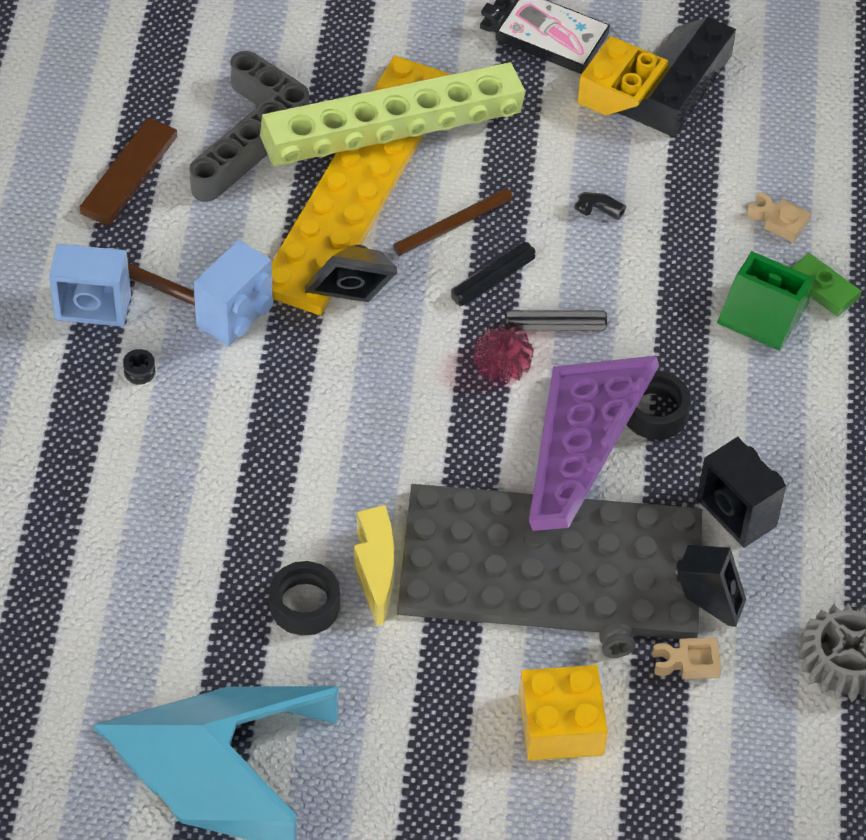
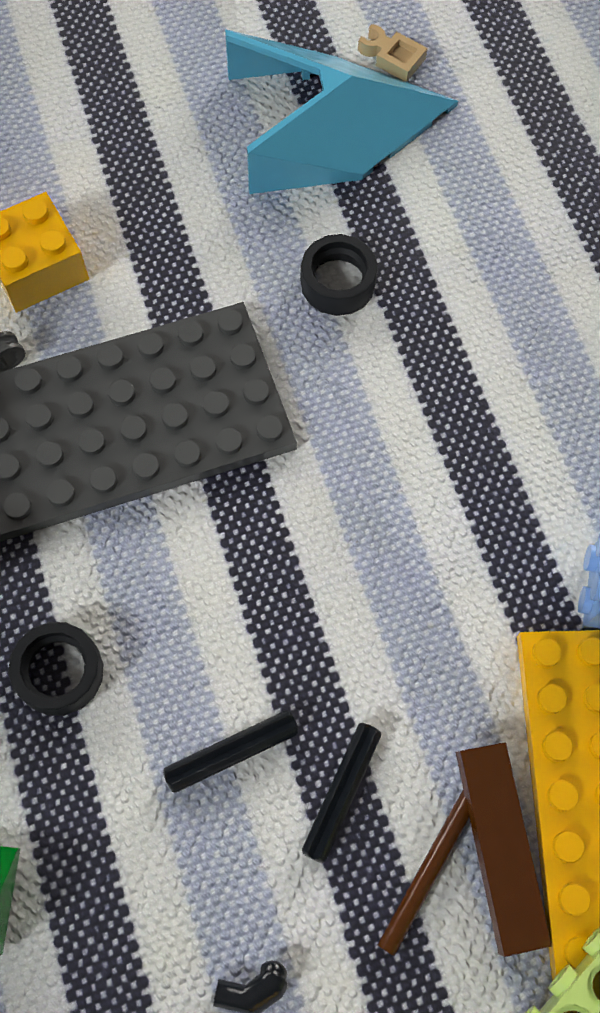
camera: 155 degrees right, 15 degrees up
(125, 787) = (395, 55): none -> tan plate
(353, 274) = (507, 670): black slope -> none
(375, 559) = (289, 337): light yellow slope -> none
(408, 207) = (503, 850): none -> reddish brown tile
(503, 354) = (266, 643): clear pink gear -> none
(581, 426) = (128, 595): medium lavender wing -> none

